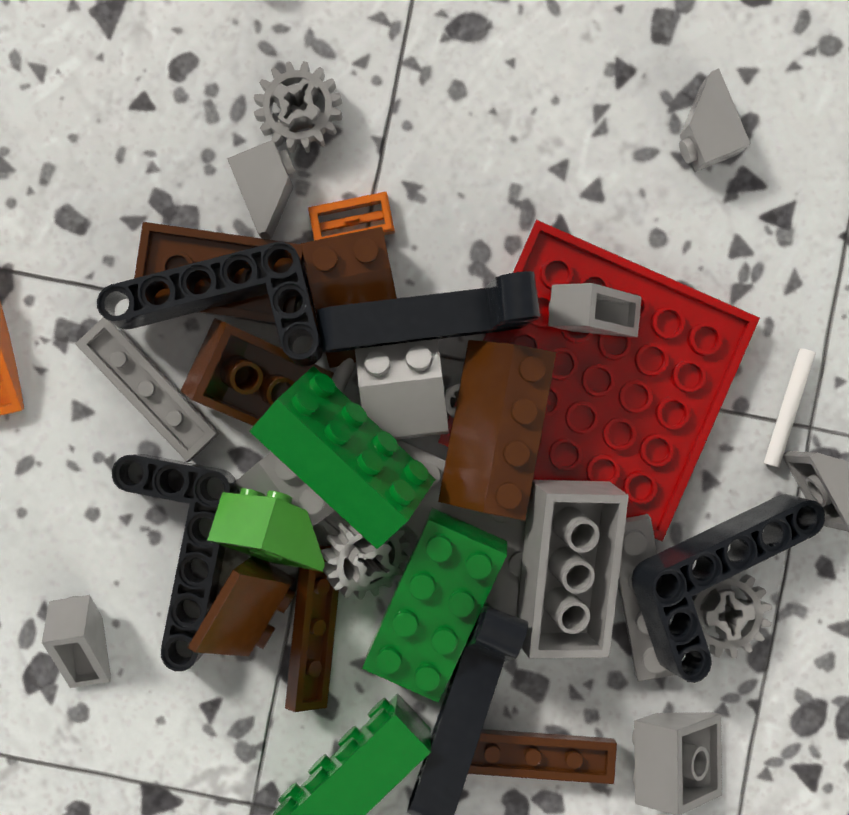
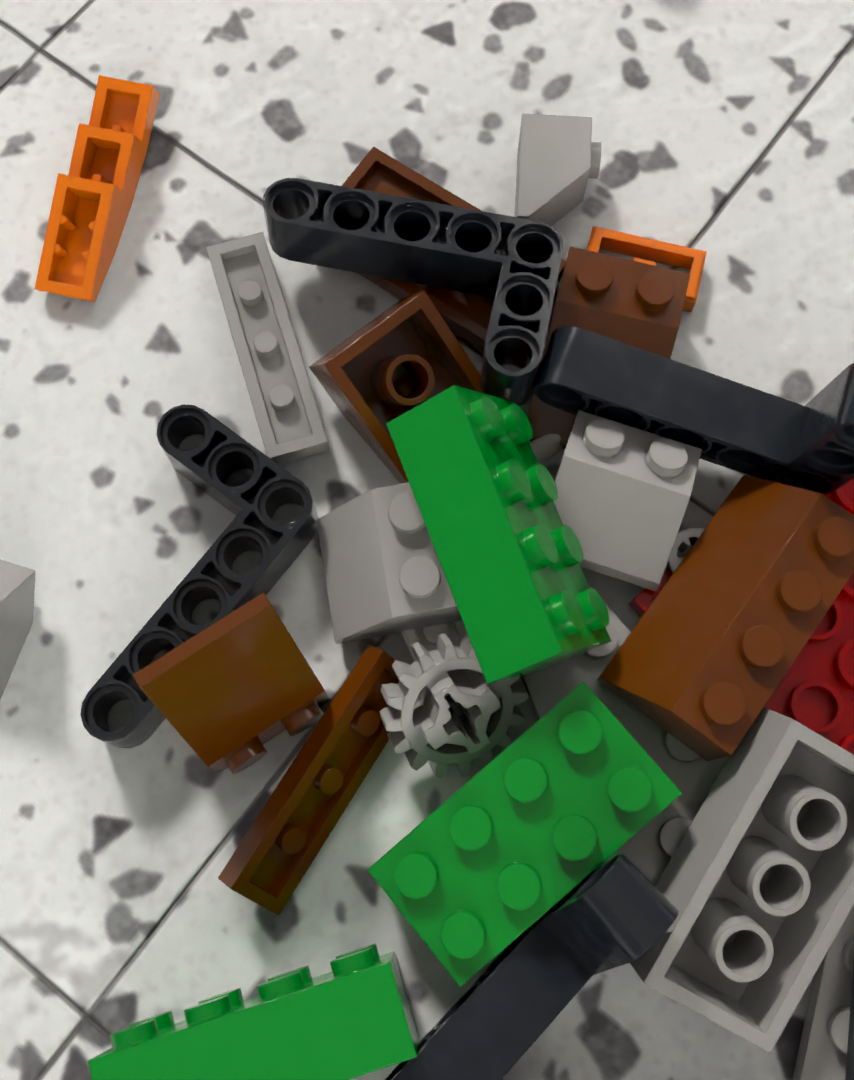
camera: 25 degrees right, 15 degrees down
(266, 529) = (335, 593): bright green slope -> none
(285, 96) = (639, 106): light grey gear -> none

